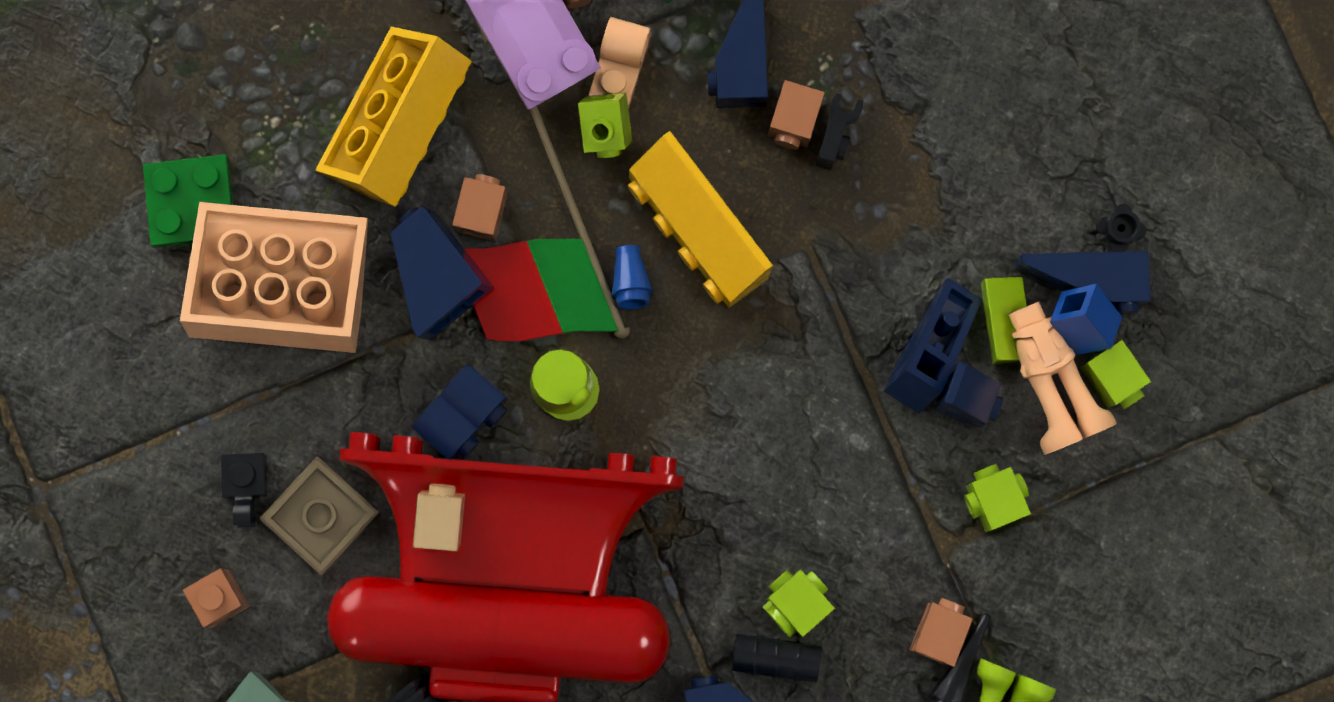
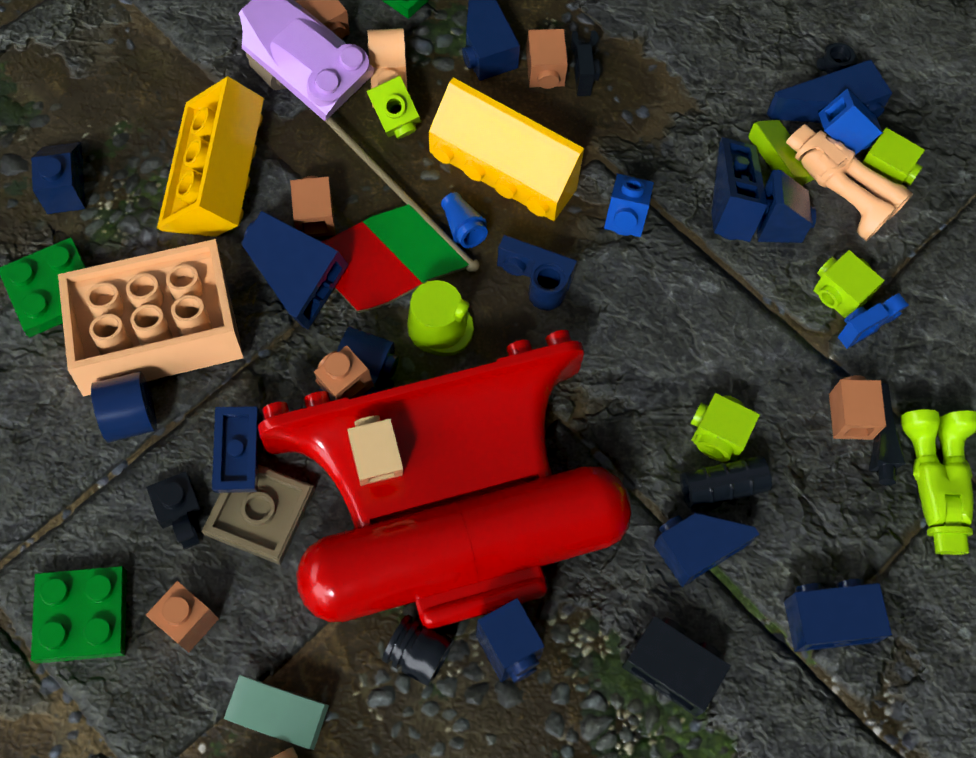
camera: 20 degrees left, 15 degrees down
(124, 556) = (79, 615): none -> green plate
(223, 368) = (123, 407): none -> dark blue piece
(233, 74) = (59, 177): none -> dark blue slope
(316, 454) = (236, 449): none -> dark blue plate
(438, 425) = (341, 371): none -> nougat brick
(670, 346) = (541, 266): none -> dark blue plate
(806, 328) = (629, 205): none -> blue brick
(993, 545) = (865, 322): none -> blue plate

